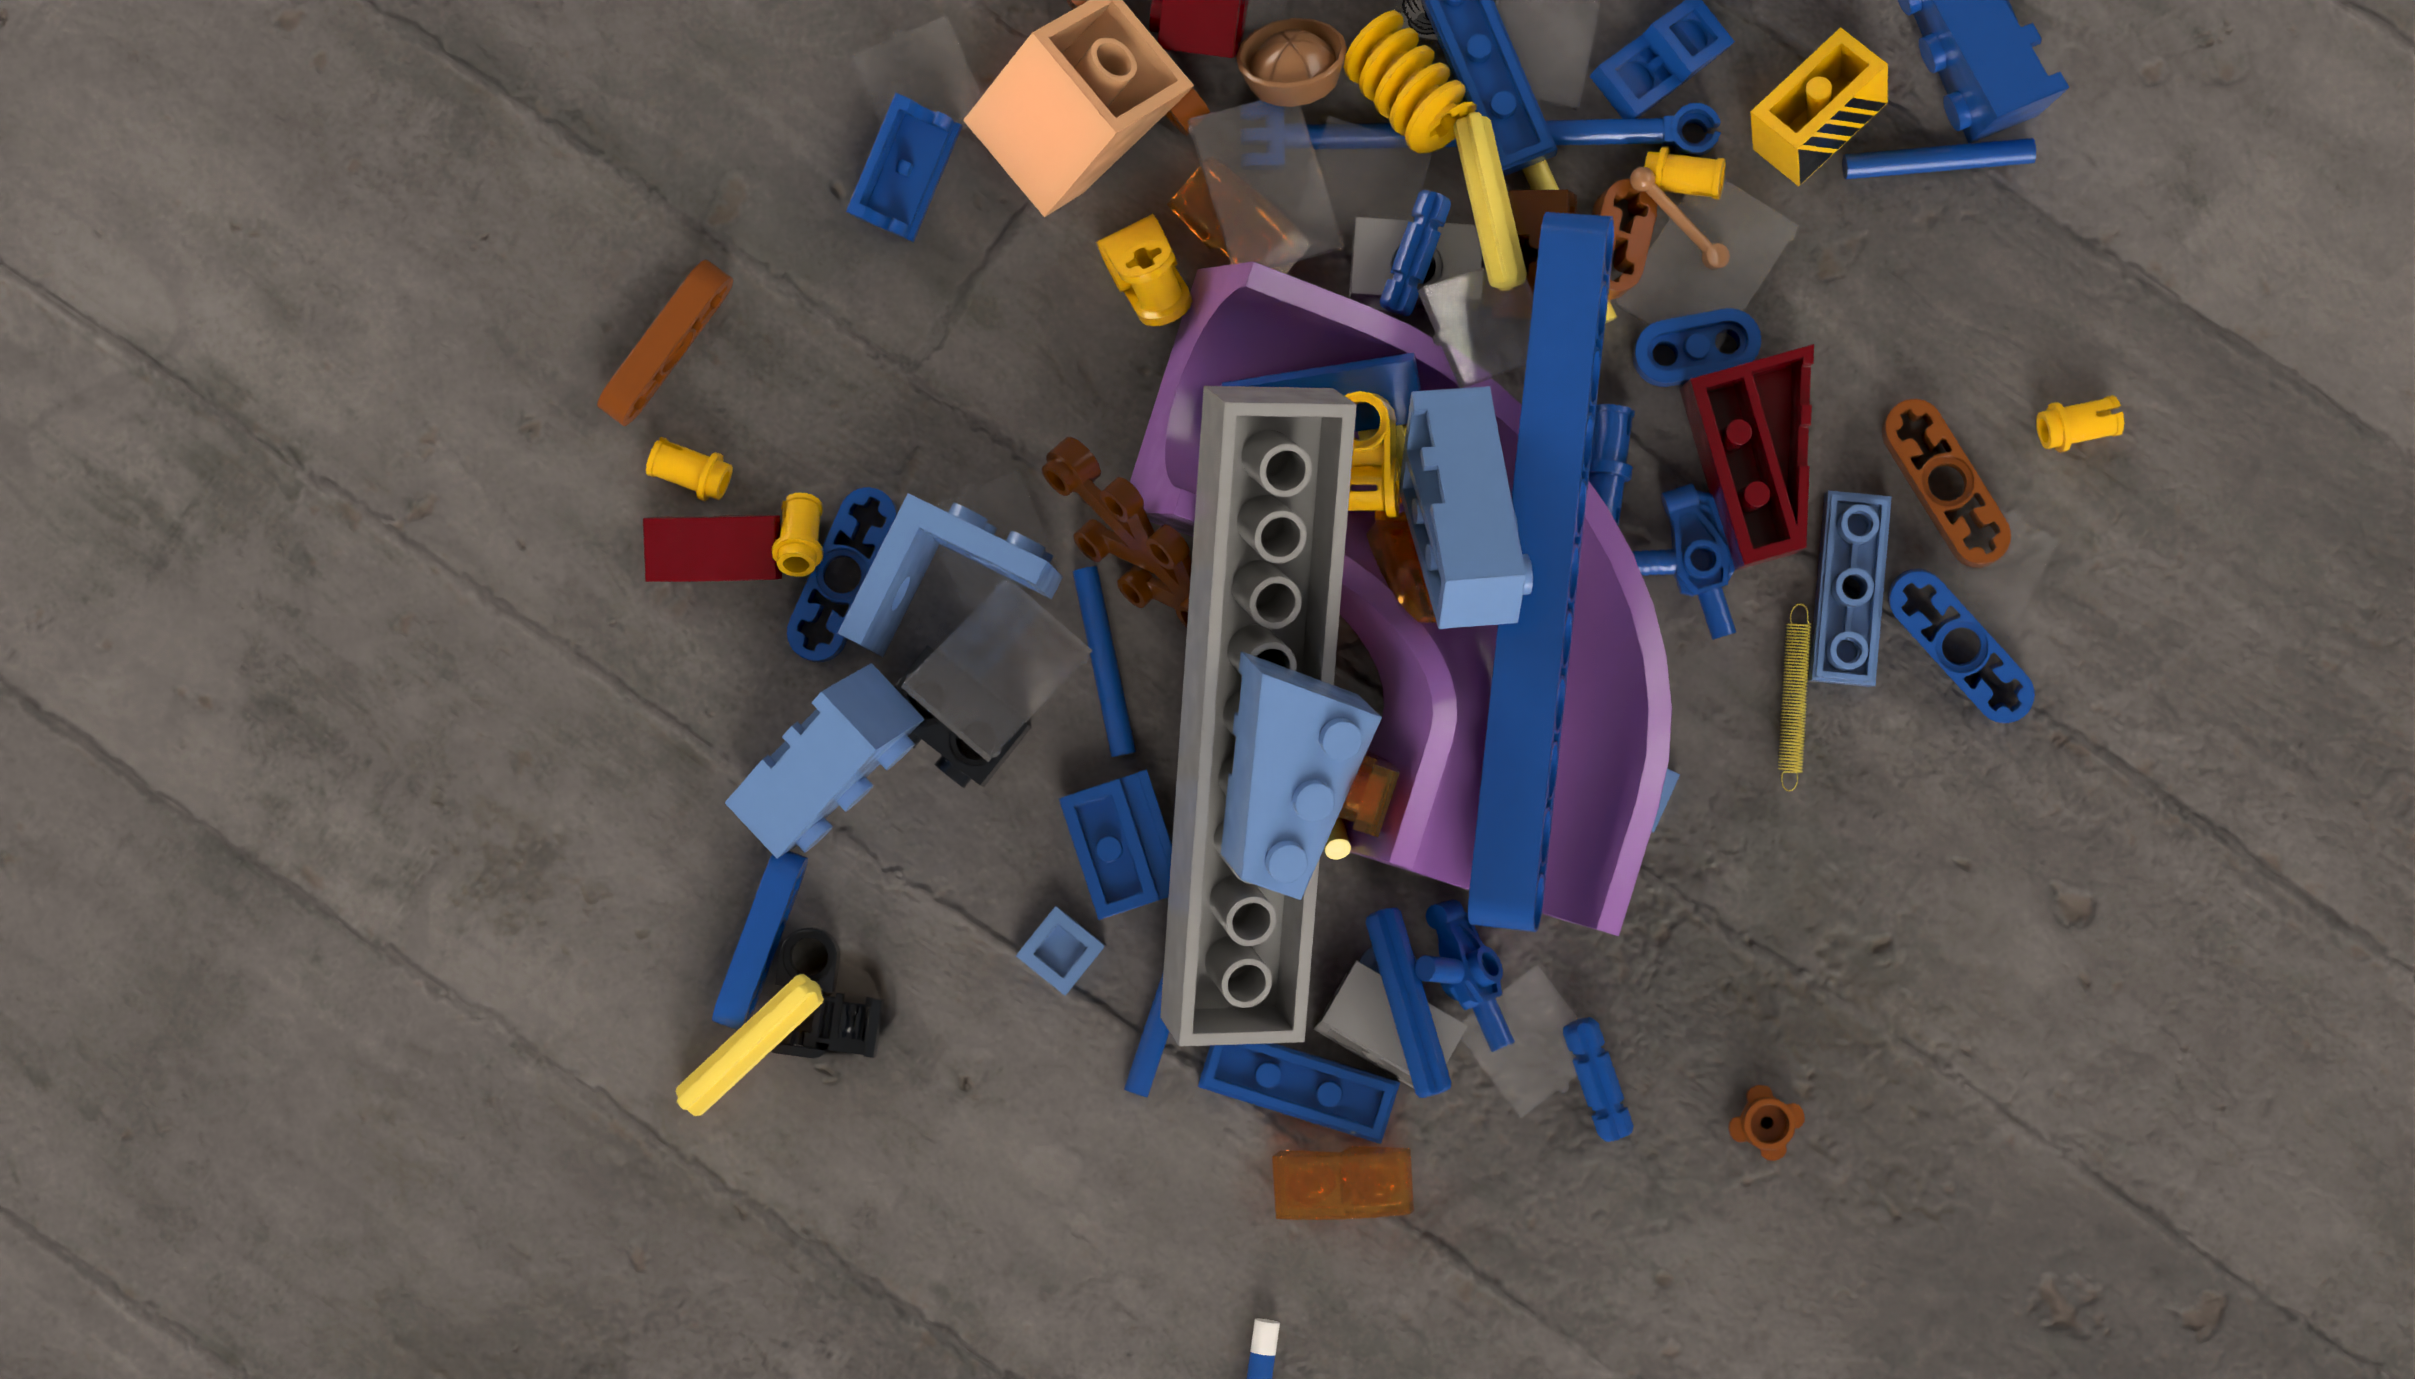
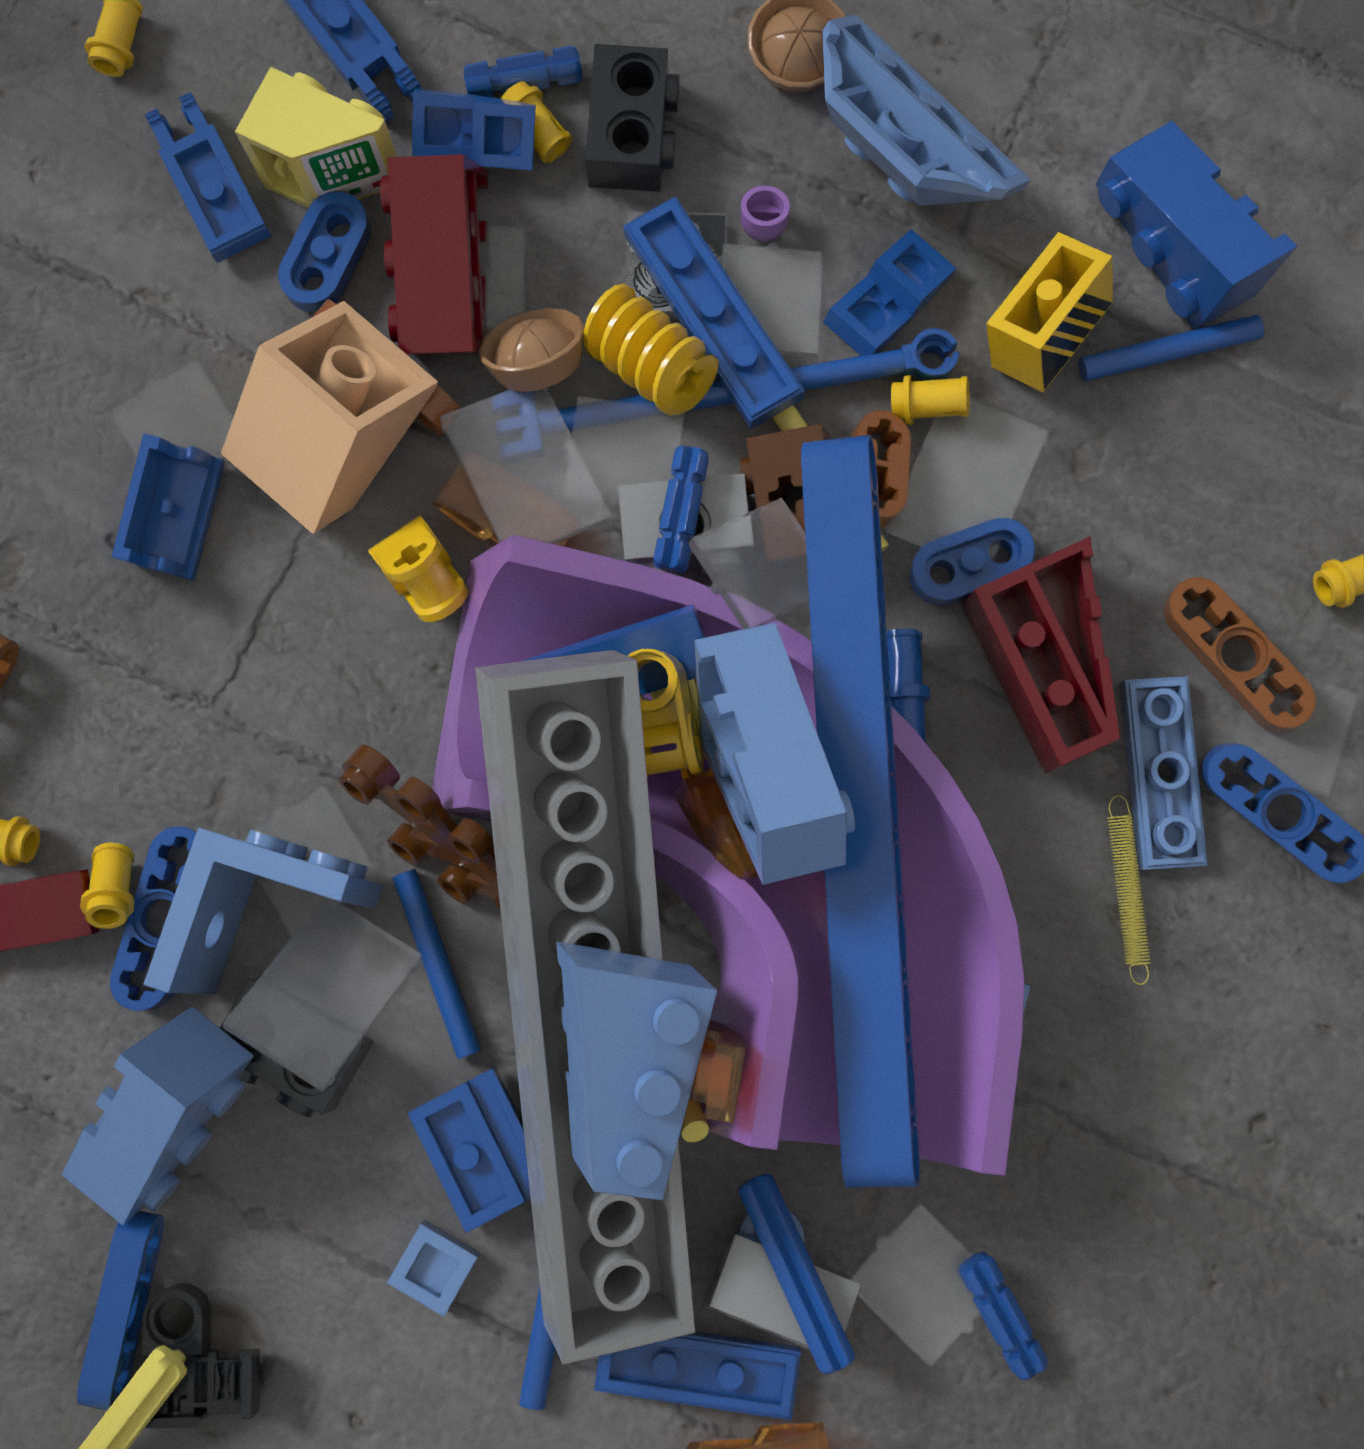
camera: 10 degrees left, 5 degrees down
(1466, 970) = (849, 1225): blue piece -> none
(1490, 202) = (746, 448): light yellow axle -> none
(1698, 555) = (1009, 764): blue piece -> none
(1713, 255) = (972, 471): medium nougat hinge -> none
(1784, 1122) = (1195, 1345): dark orange plate -> none

